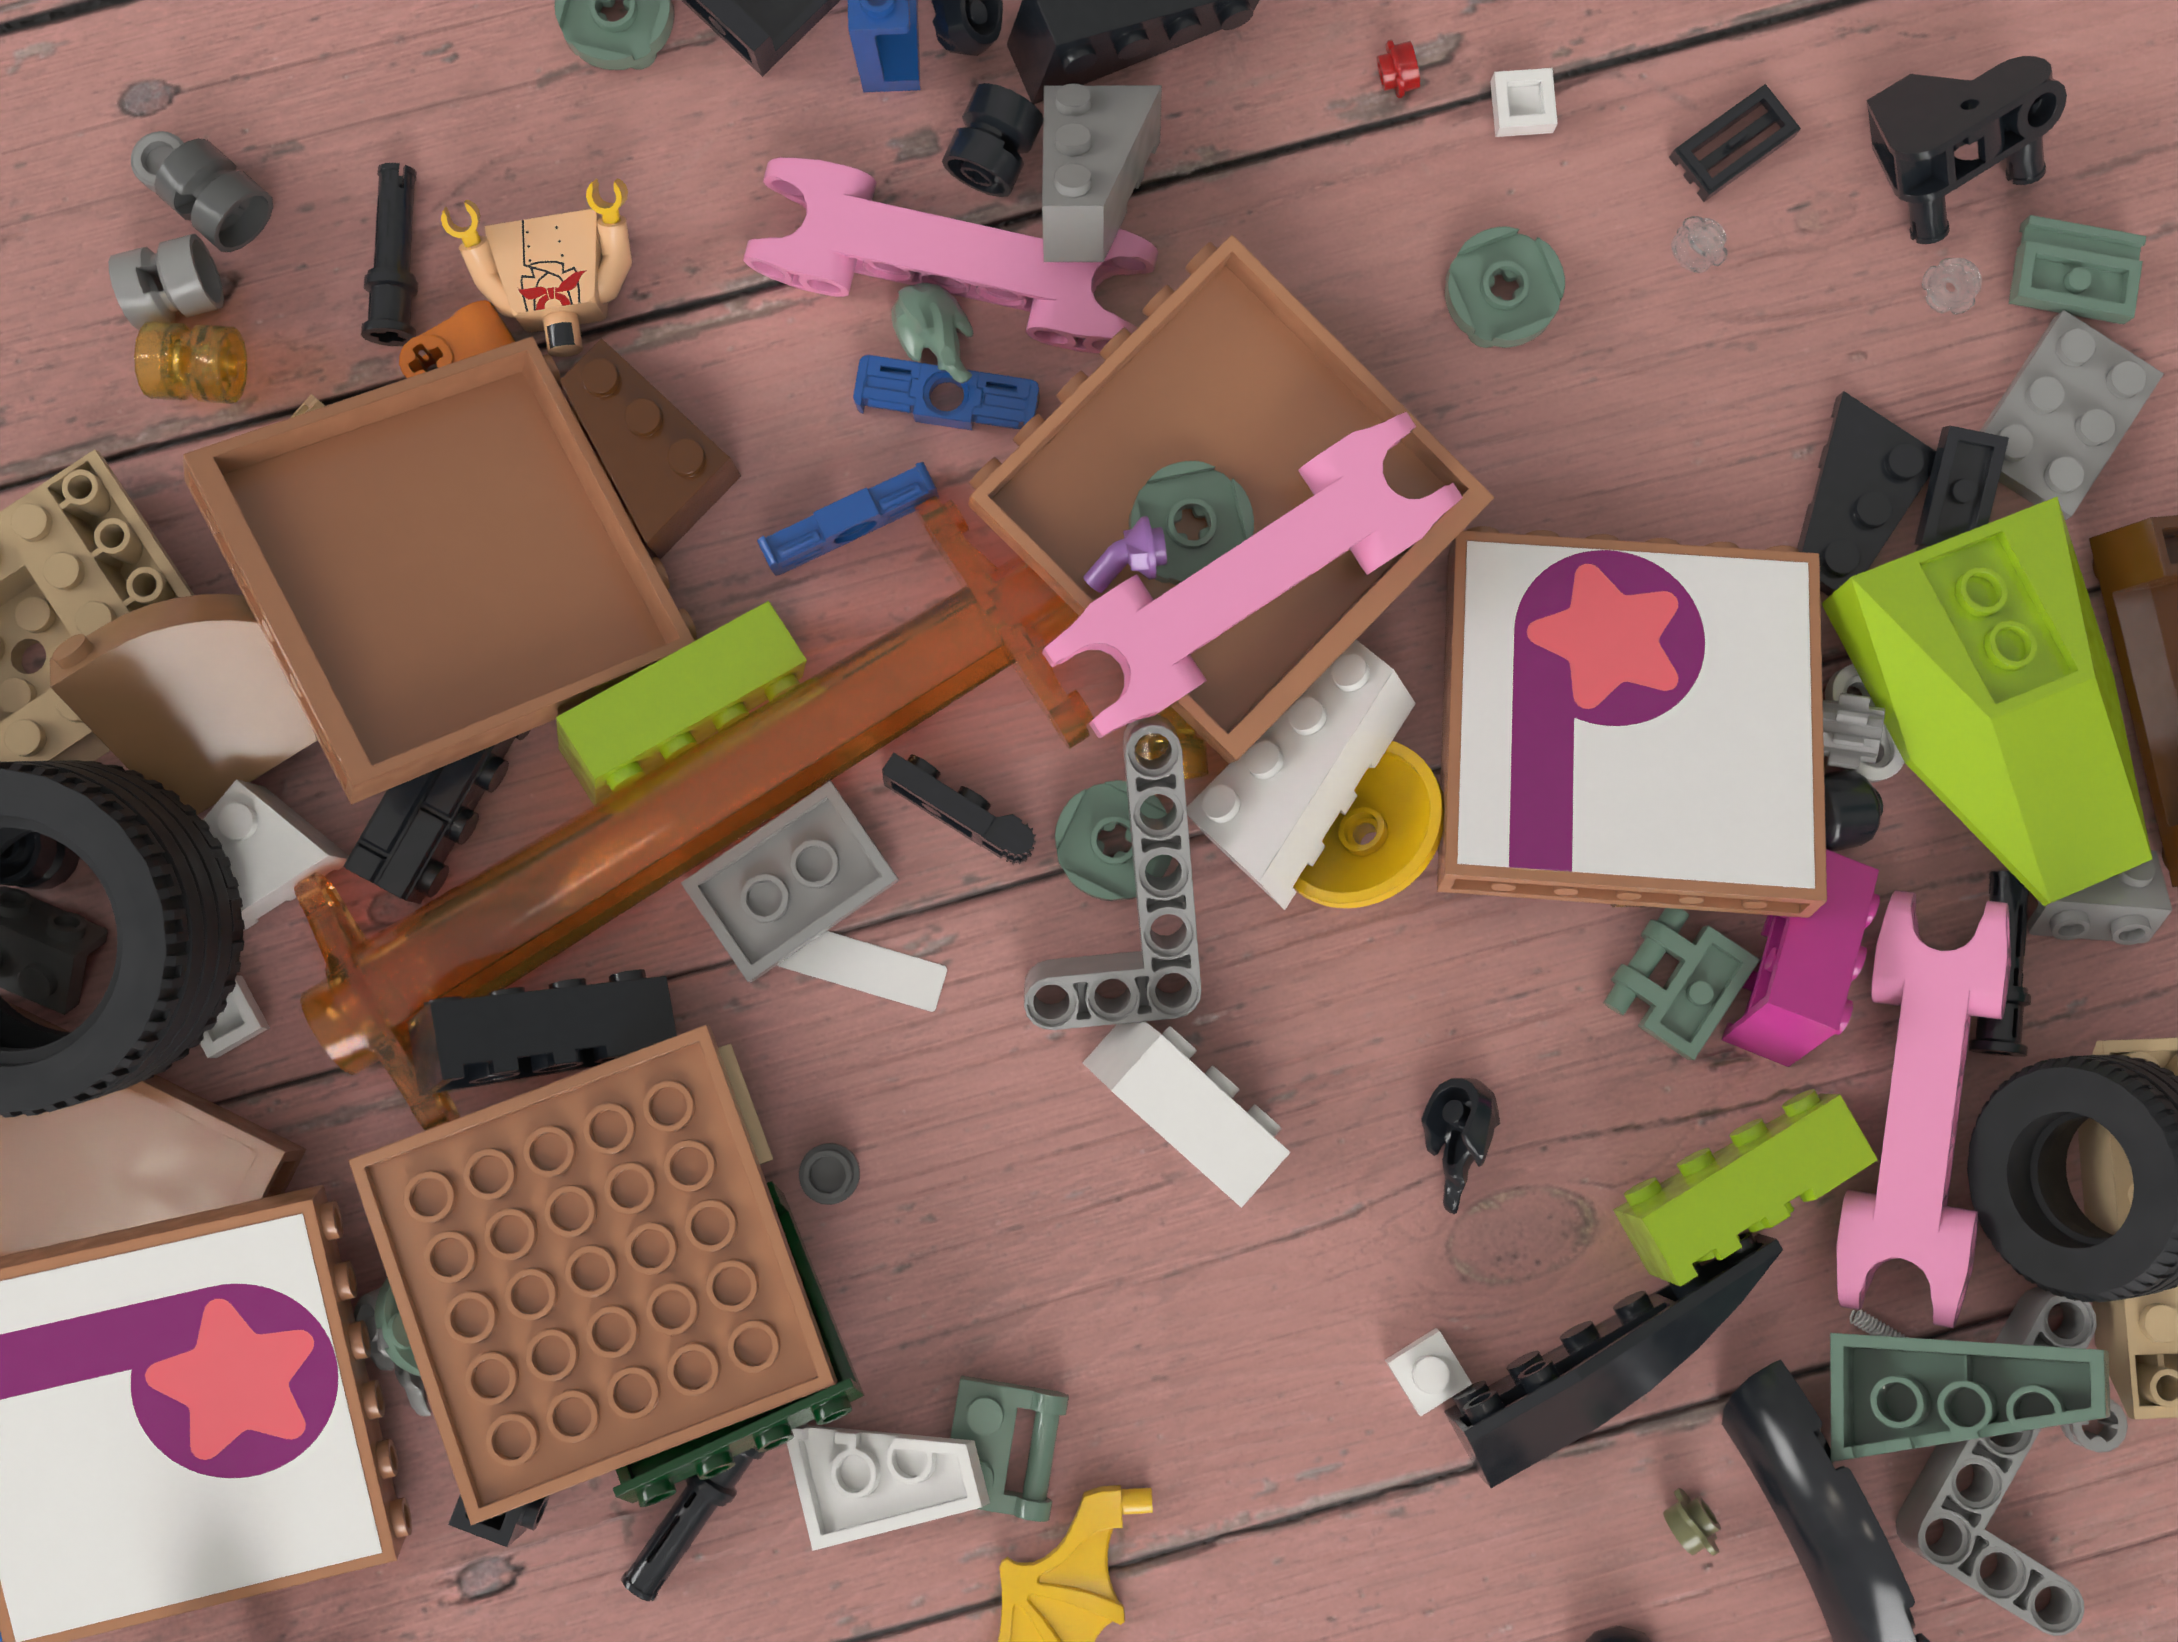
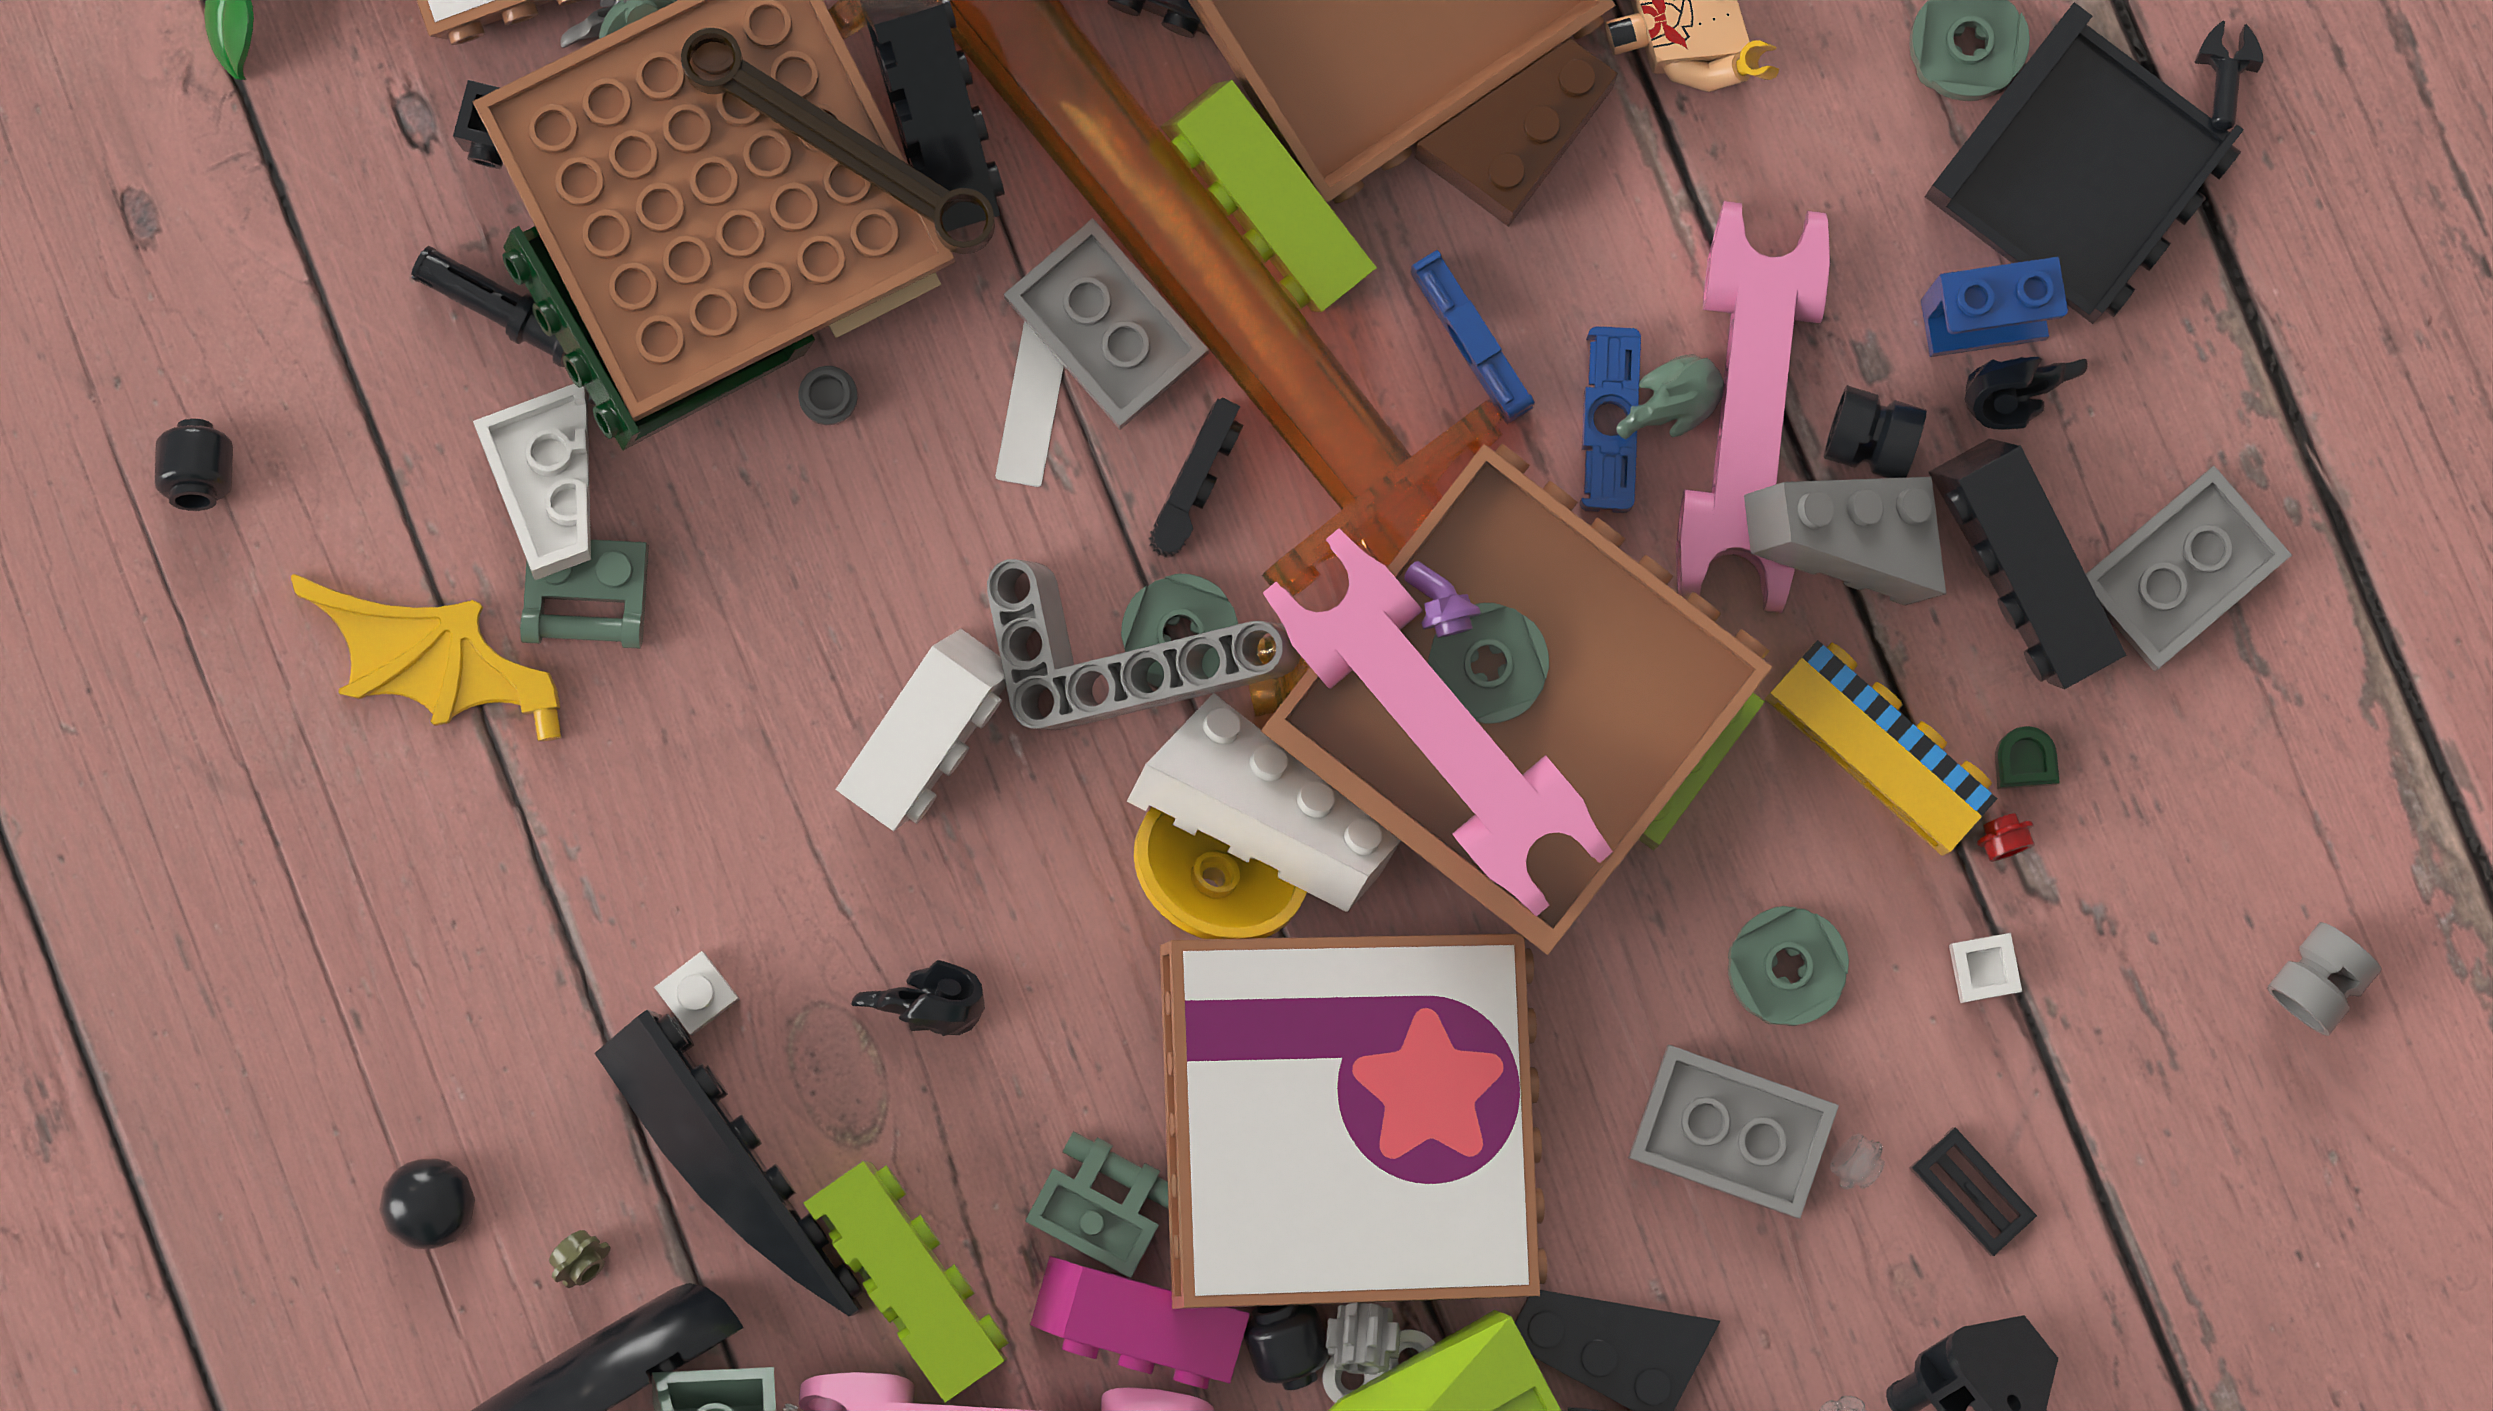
camera: 80 degrees right, 0 degrees up
(562, 1138) = (837, 140): none -> dark brown piece
(1306, 166) = (1881, 747): none -> yellow brick
(1323, 44) = (2026, 759): none -> dark green tile
(1661, 357) = (1733, 1131): none -> light grey plate

